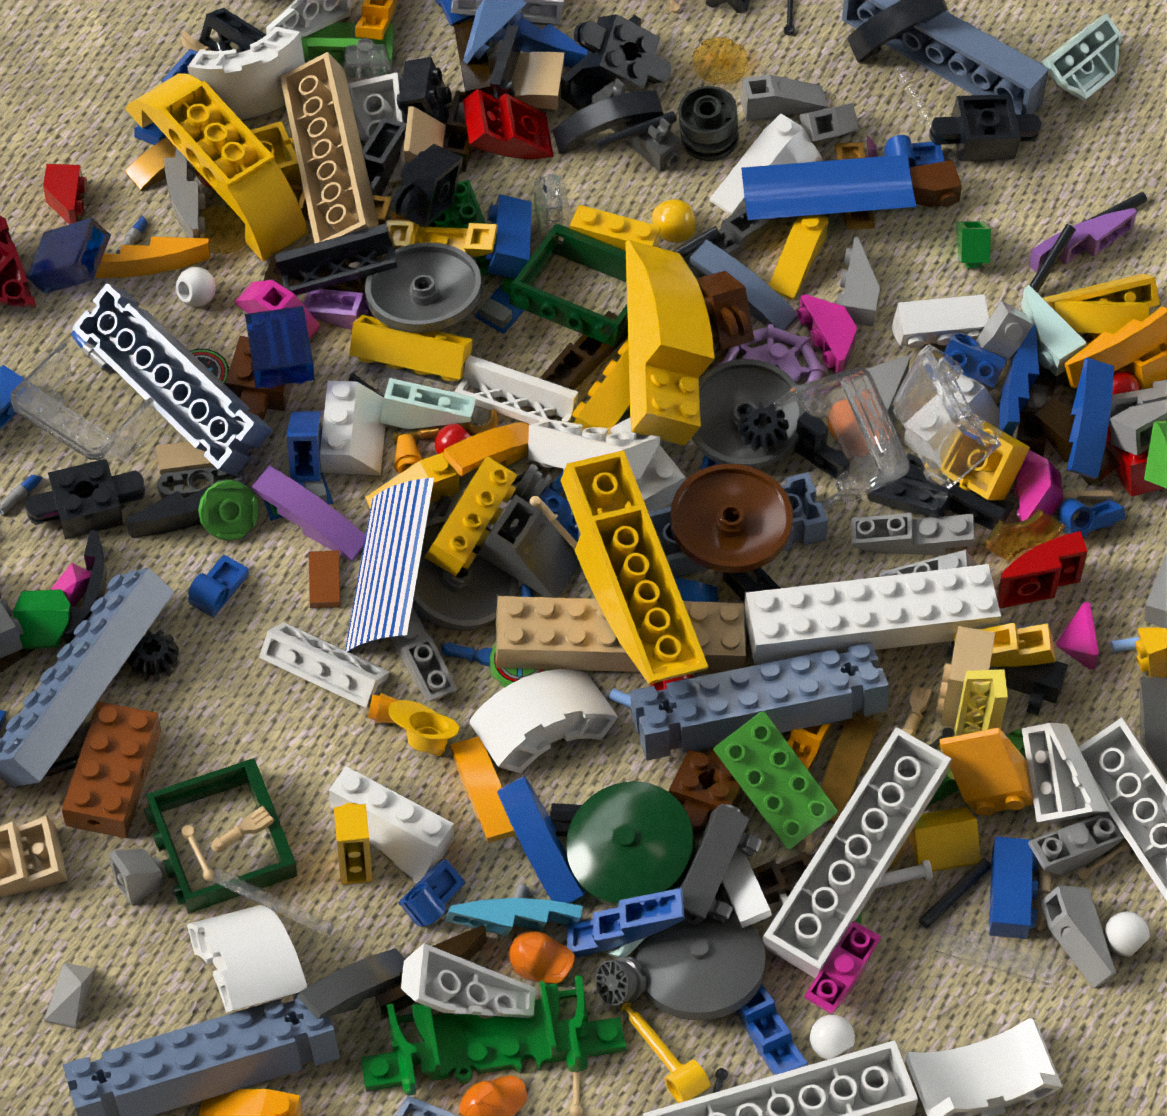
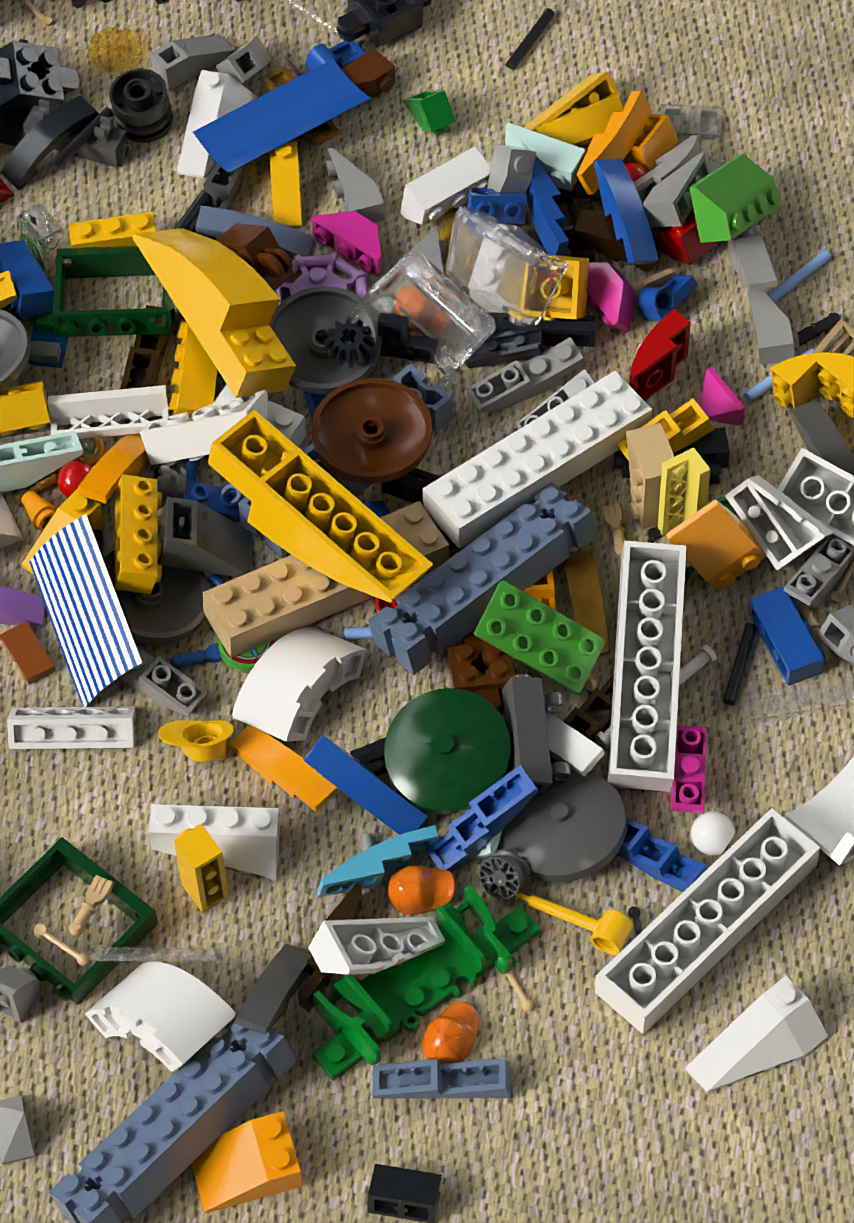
camera: 25 degrees left, 0 degrees up
(379, 708) = (148, 741): light orange cone -> none
(428, 897) = (290, 881): blue plate -> none
(539, 504) = (231, 516): tan piece -> none
(675, 220) = (158, 199): yellow hair -> none
(946, 839) = (709, 620): yellow slope -> none
(1012, 538) = (614, 343): clear yellow tile -> none
(1052, 257) = (507, 96): black bar -> none
(1089, 235) = (524, 64): medium lavender slope -> none

